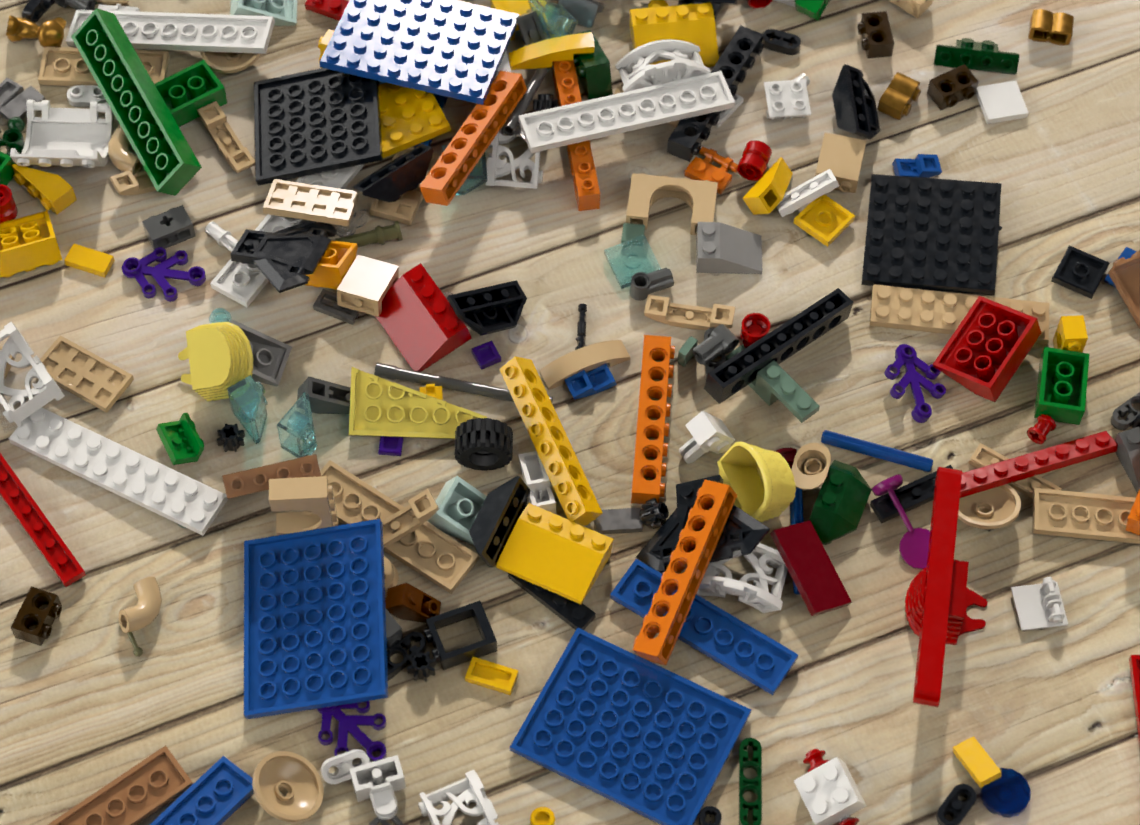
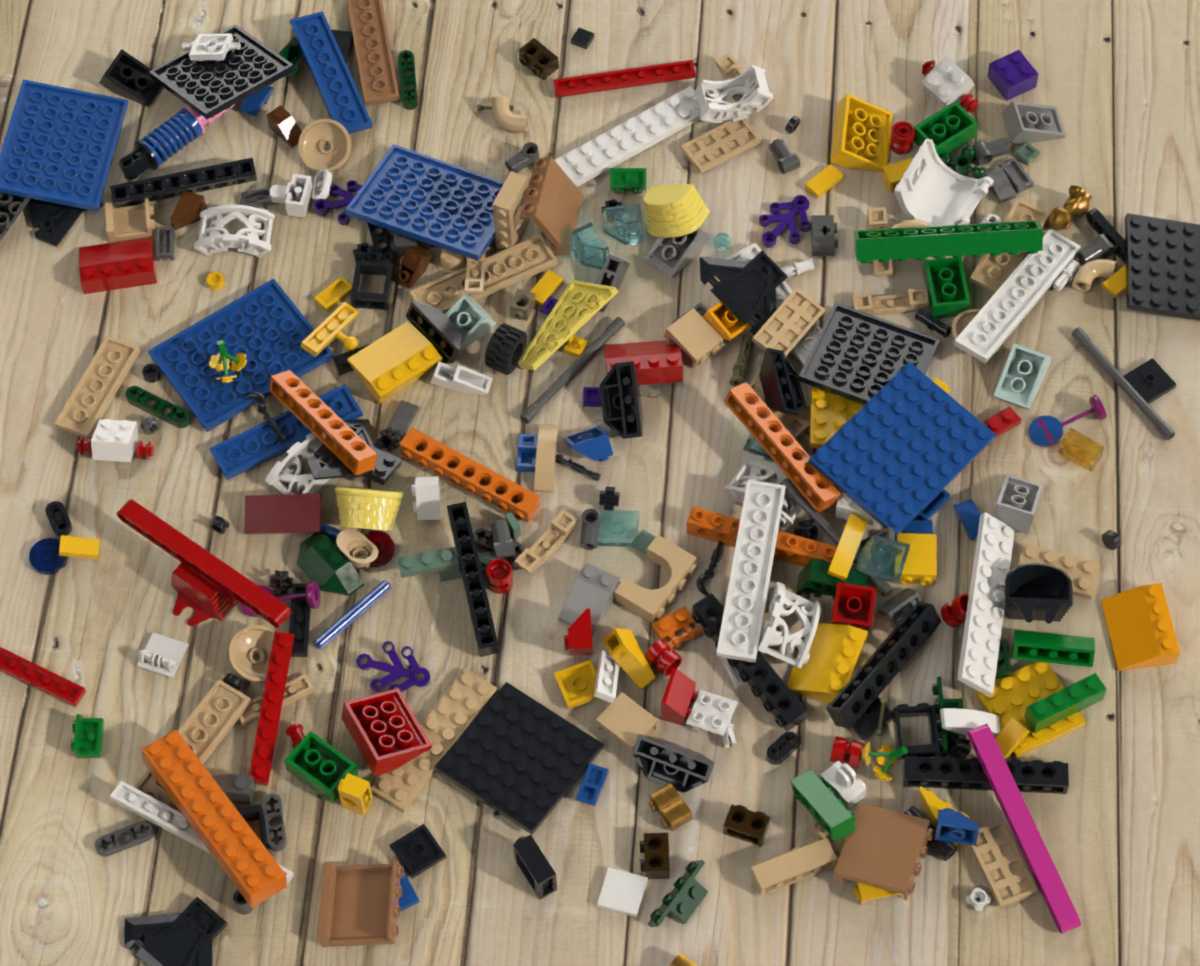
camera: 120 degrees right, 0 degrees up
(23, 315) = (792, 124): none -> black tile
(77, 301) = (785, 158): none -> dark grey piece
(129, 752) = (410, 79): none -> dark green beam
(200, 563) = (523, 158): none -> dark grey piece
(234, 96) = (933, 323): none -> black pin
(369, 461) = (547, 287): none -> yellow tile
(405, 460) = (524, 299): none -> dark tan brick
(548, 326) = (591, 443): none -> blue slope
(550, 441) = (420, 397): yellow brick -> none
(550, 641) = (332, 329): none -> yellow plate
(605, 280) = (609, 498): none -> black gear
(612, 31) = (853, 605): none -> red slope
(635, 169) = (709, 572): none -> black piece
(651, 715) = (221, 362): none -> yellow plant
(694, 660) = (263, 409): none -> black piece
(779, 227) = (580, 636): none -> red slope
(781, 775) = (150, 425): none -> dark grey bush
(791, 132) = (678, 698): none -> red slope
(858, 630) = (219, 525): none -> black bush
(888, 531) = (280, 582): none -> black gear
(1026, 518) = (233, 681): none -> black tile
(1034, 163) = (534, 866): none -> black window

